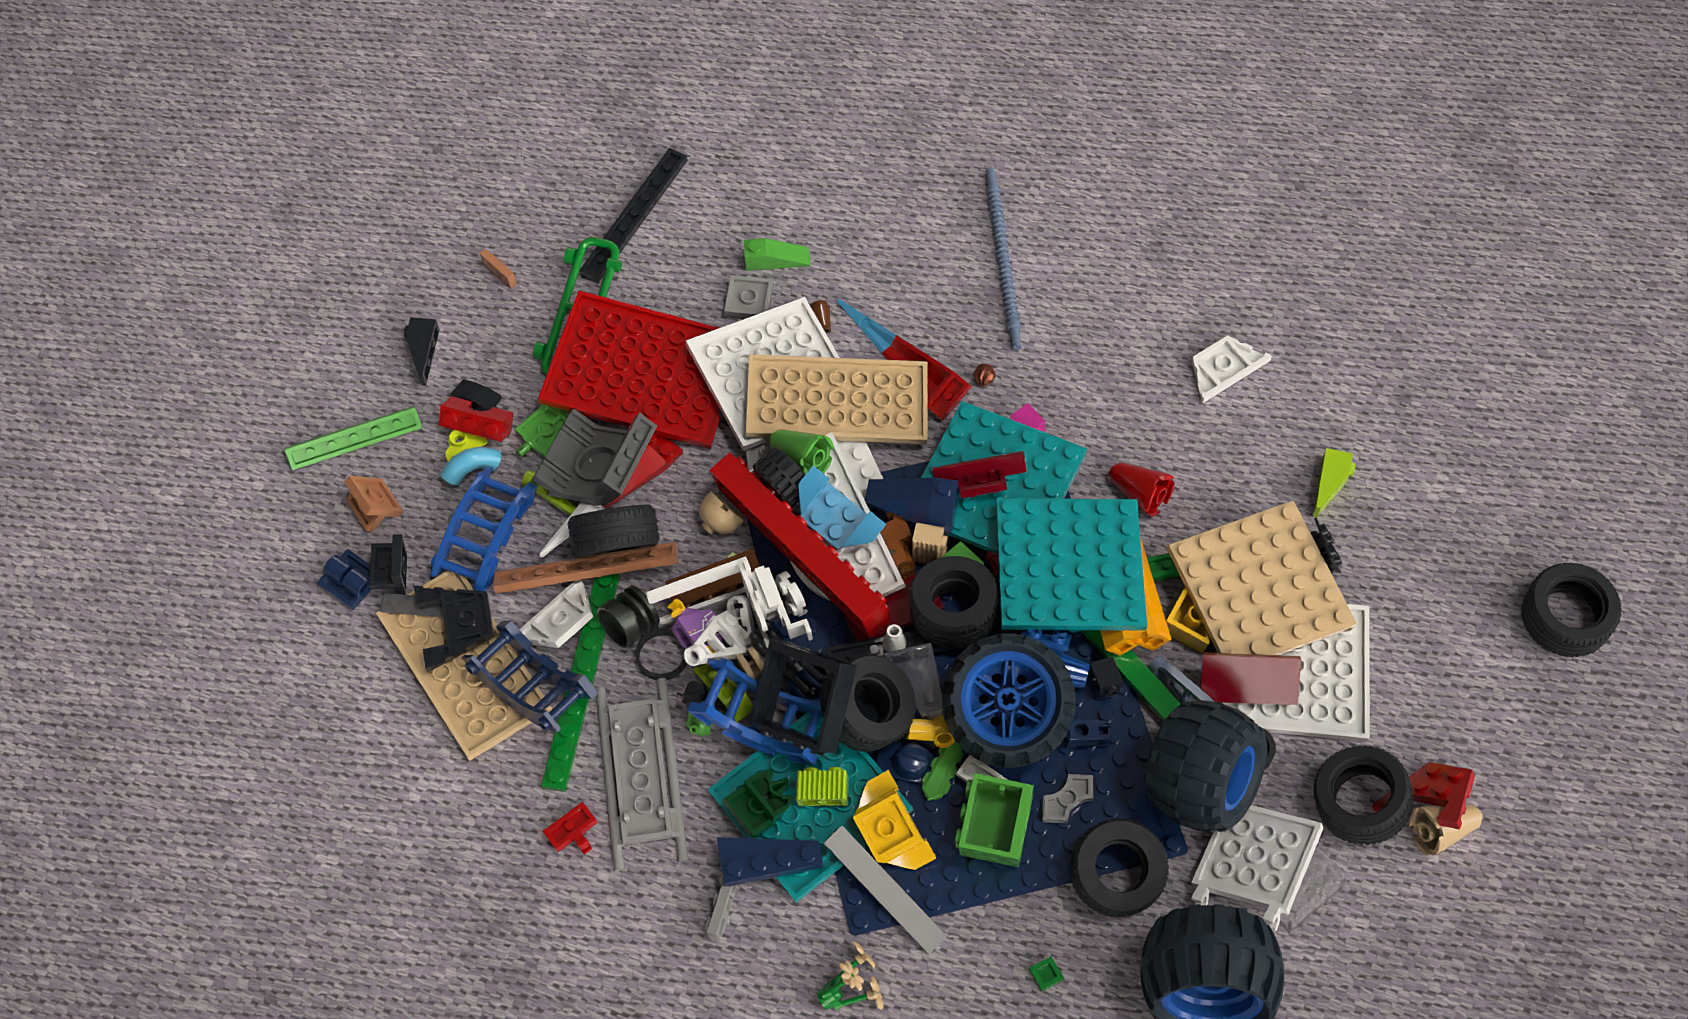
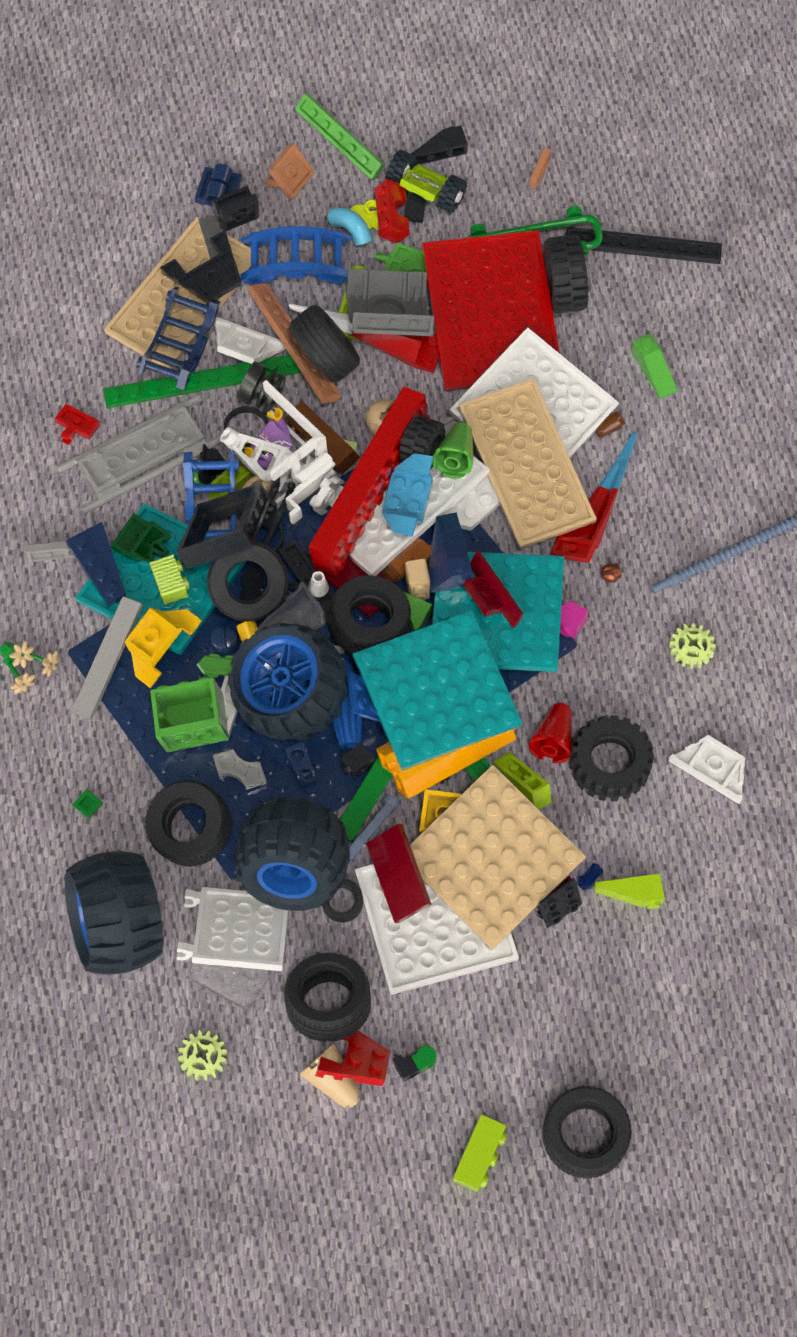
camera: 65 degrees right, 5 degrees up
(459, 374) = (426, 182): none -> plate
(645, 279) = (566, 273): none -> black tyre
(748, 296) = (603, 362): light grey plate -> none
(1091, 338) = (692, 655): none -> yellowish green gear
(1186, 526) = (525, 780): none -> lime slope
(1189, 420) = (604, 783): none -> black tyre
(1306, 515) = (588, 878): none -> clear blue pin
(1388, 939) = (195, 1060): none -> yellowish green gear
(1452, 741) = (415, 1064): none -> leg
(1563, 715) = (480, 1154): none -> lime brick

